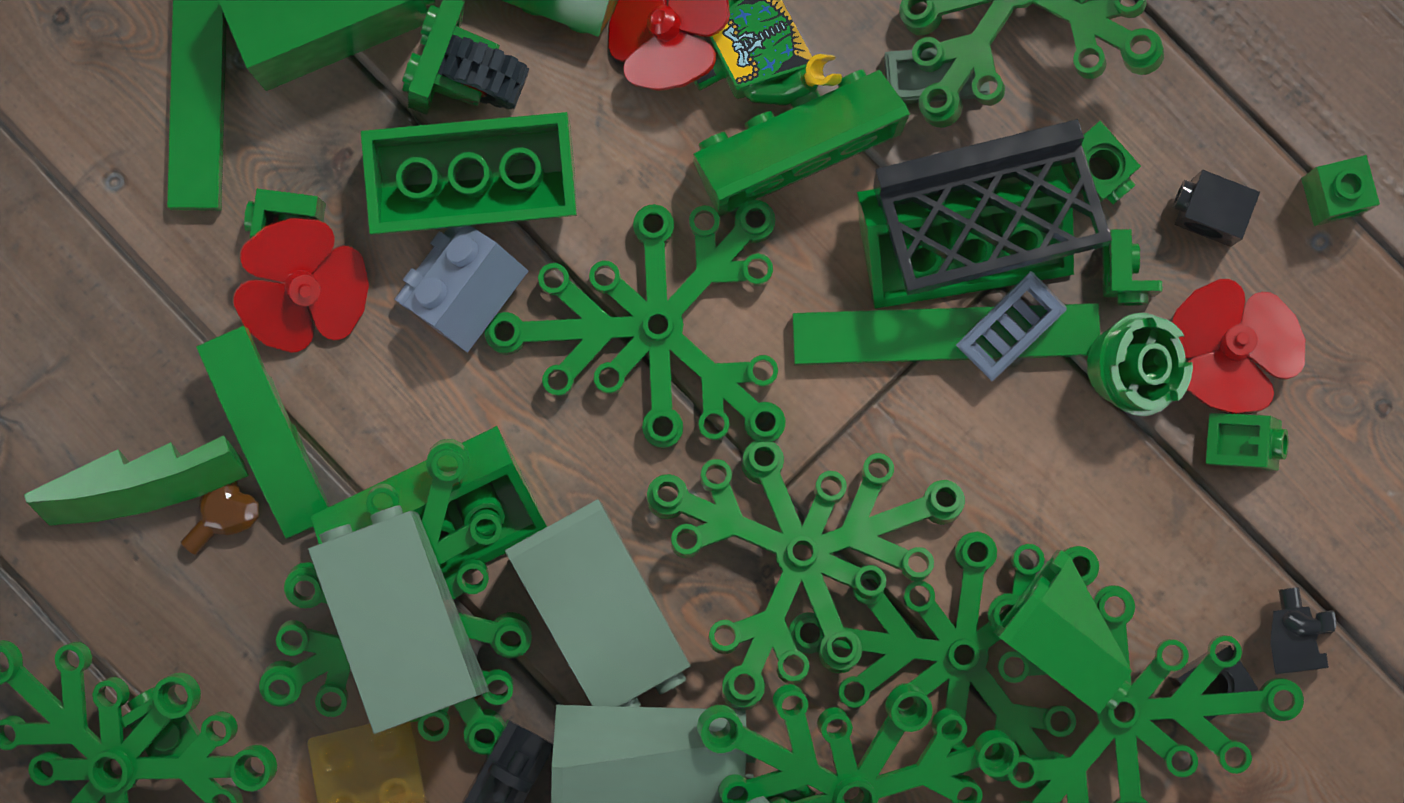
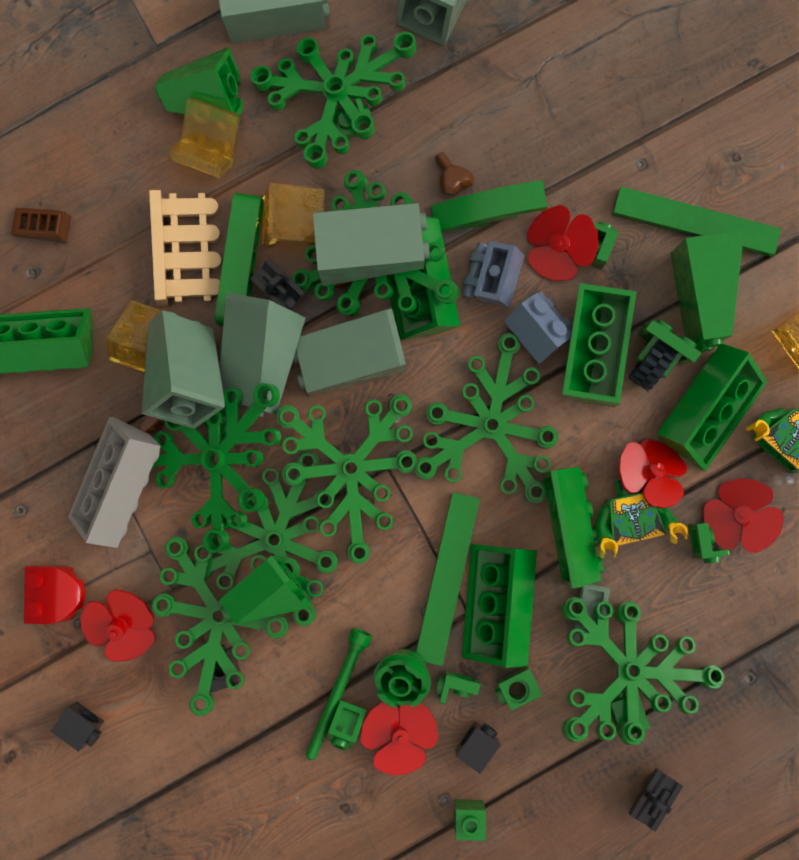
camera: 110 degrees right, 0 degrees up
(121, 488) = (479, 126): green slope -> none
(386, 382) = (493, 273): none -> sand blue brick
(982, 164) = (533, 620): black fence -> none
(1042, 294) = (454, 636): sand blue slope -> none
(1097, 459) = (358, 641): none -> green piece
(1296, 634) = (235, 722): black piece -> none

